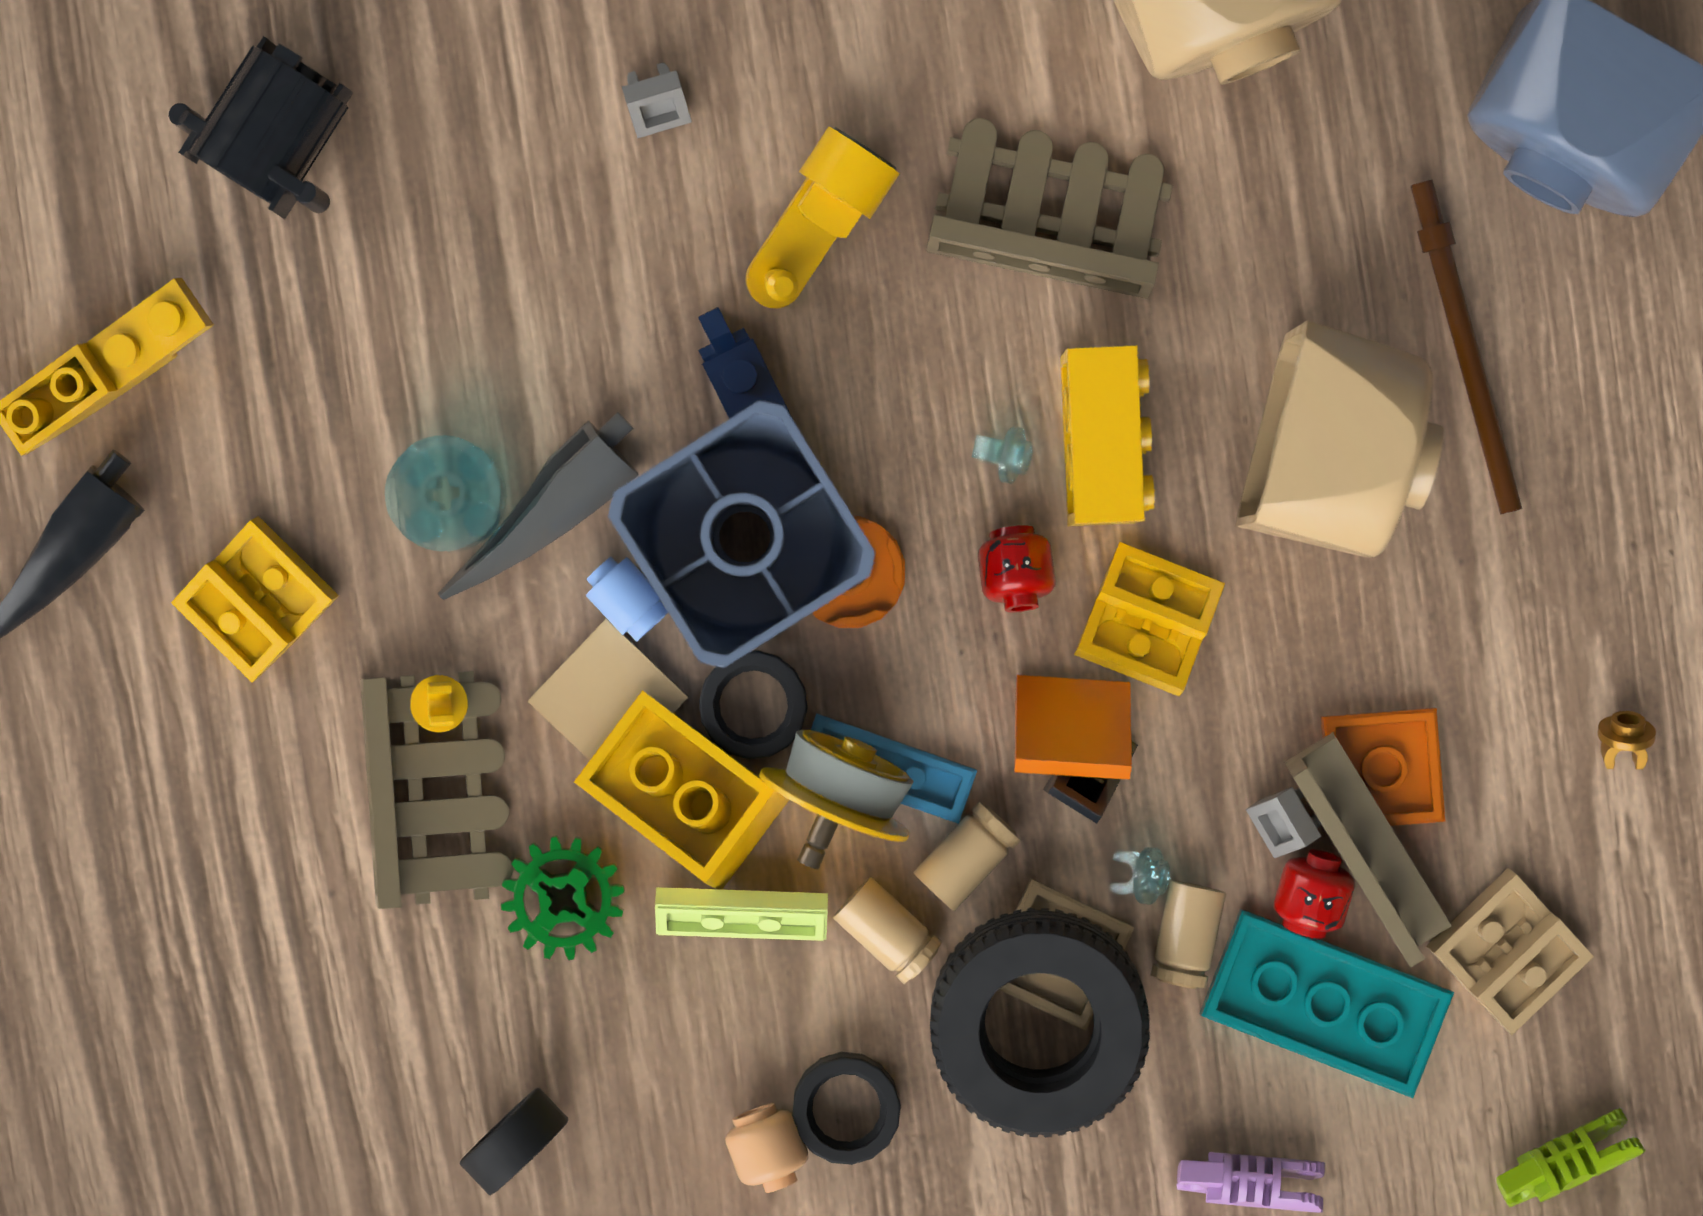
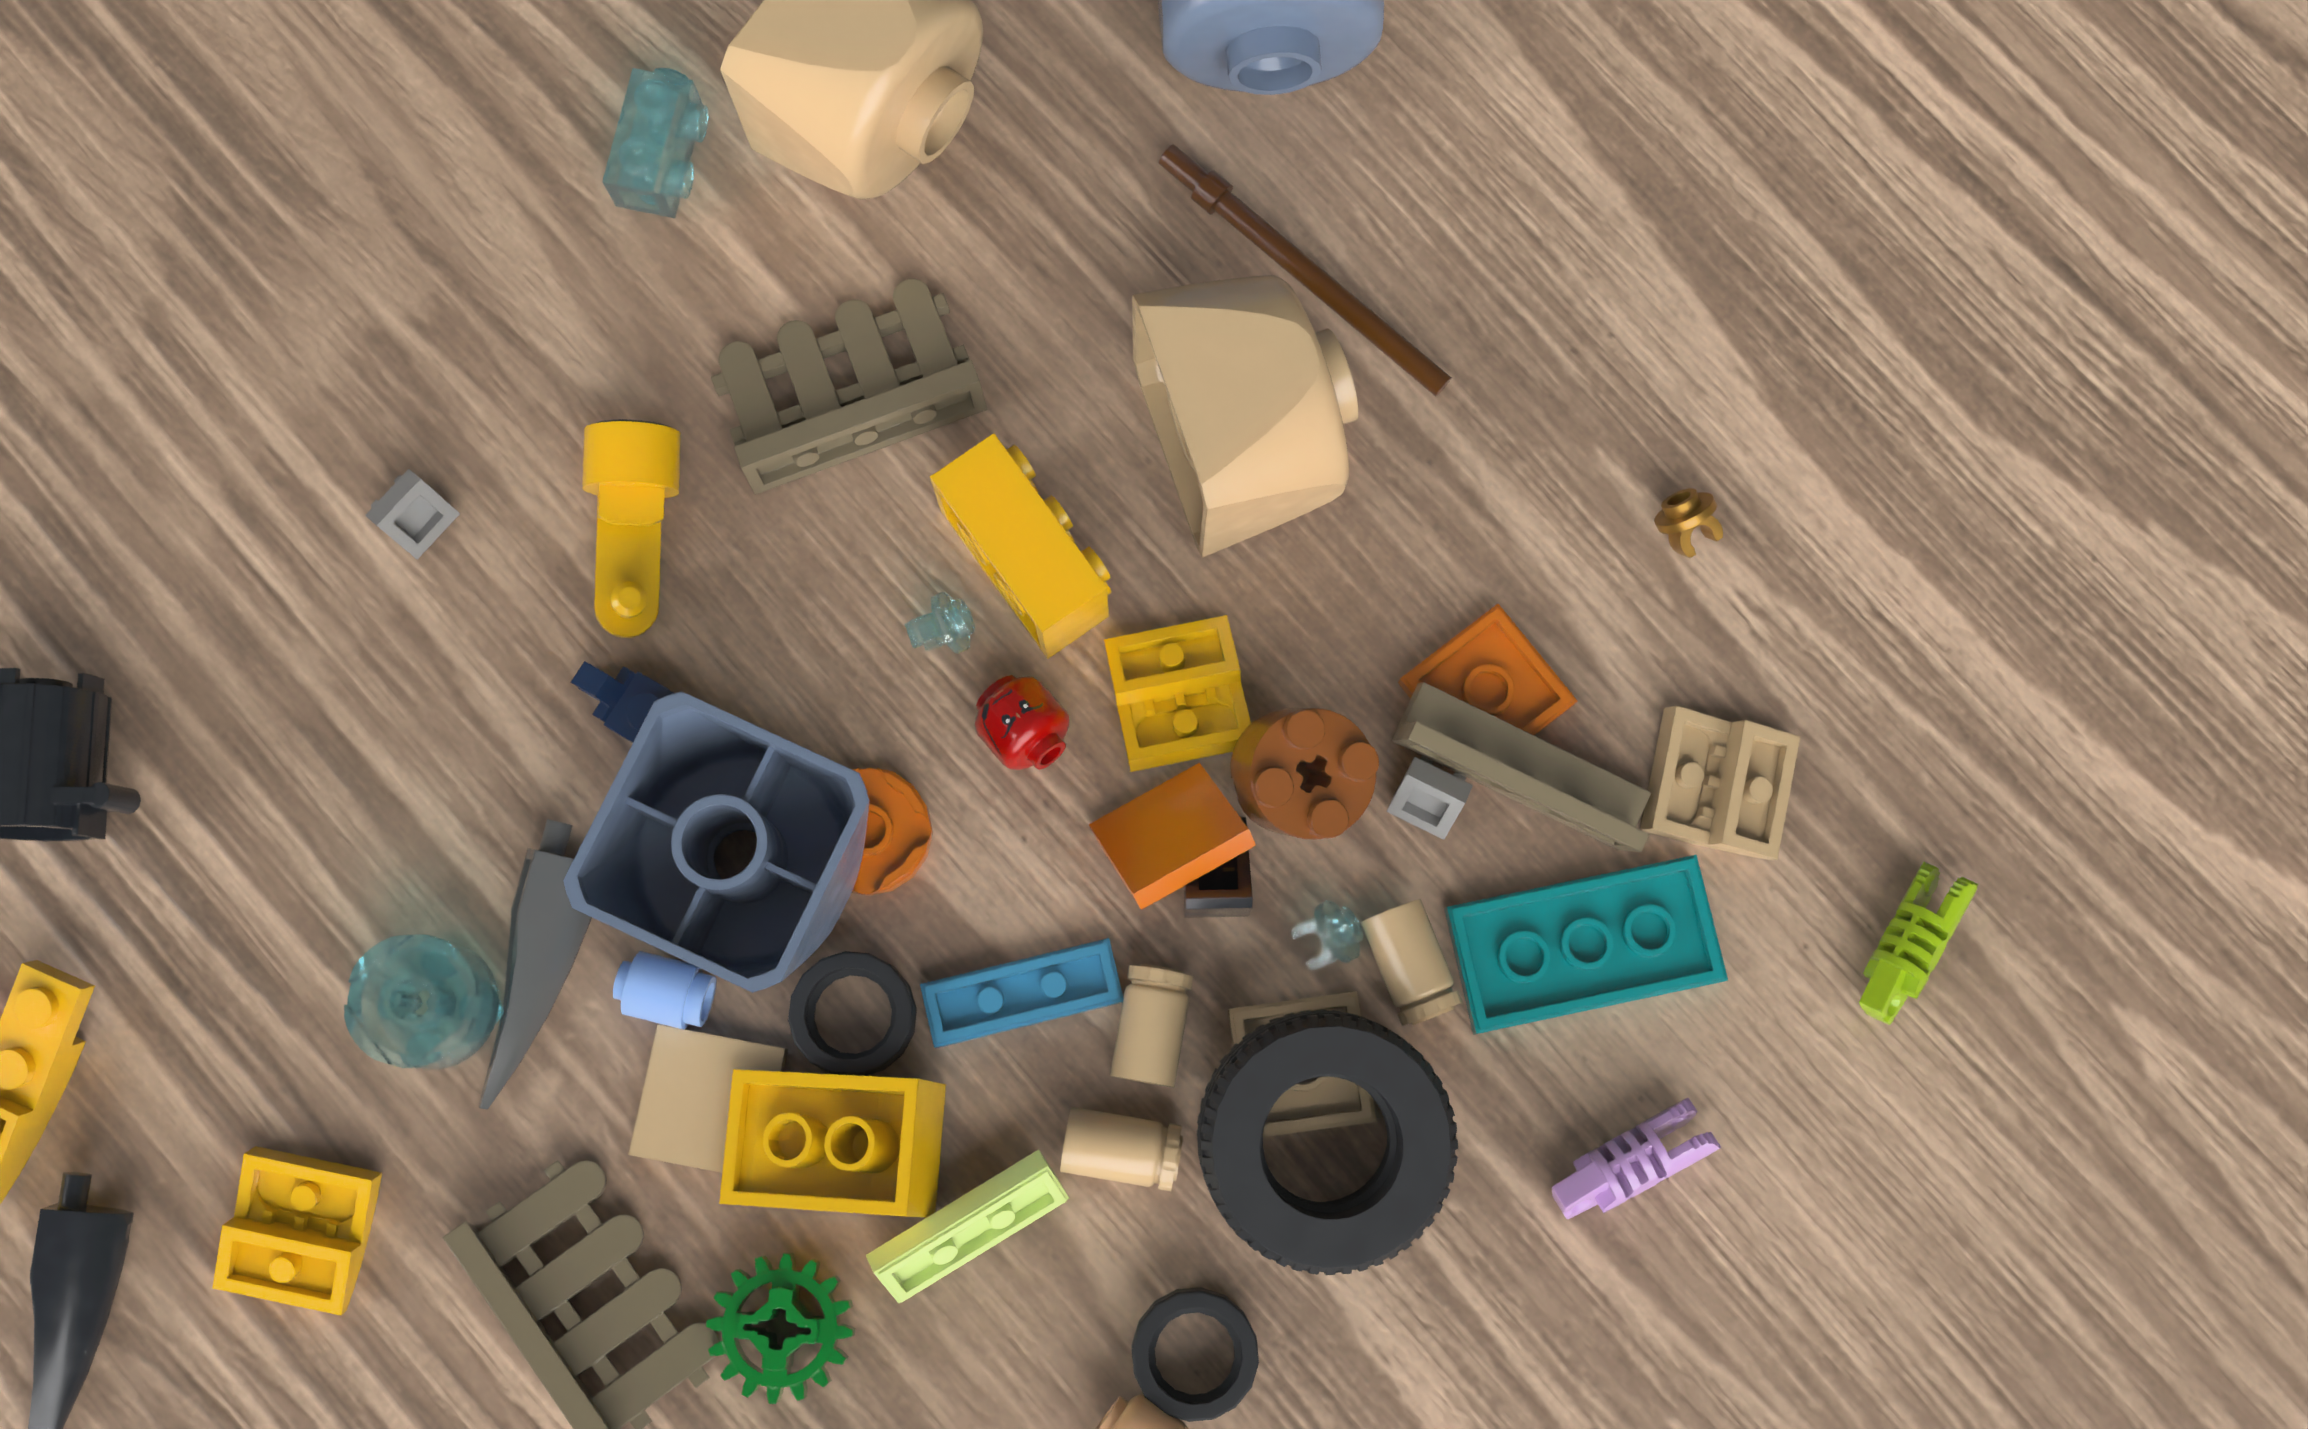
camera: 30 degrees left, 10 degrees down
(438, 703) = (537, 1213): yellow plate -> none
(843, 786) = (981, 1031): piece -> none
(1220, 769) = (1338, 763): none -> dark orange brick
(1314, 894) = (1504, 846): red head -> none

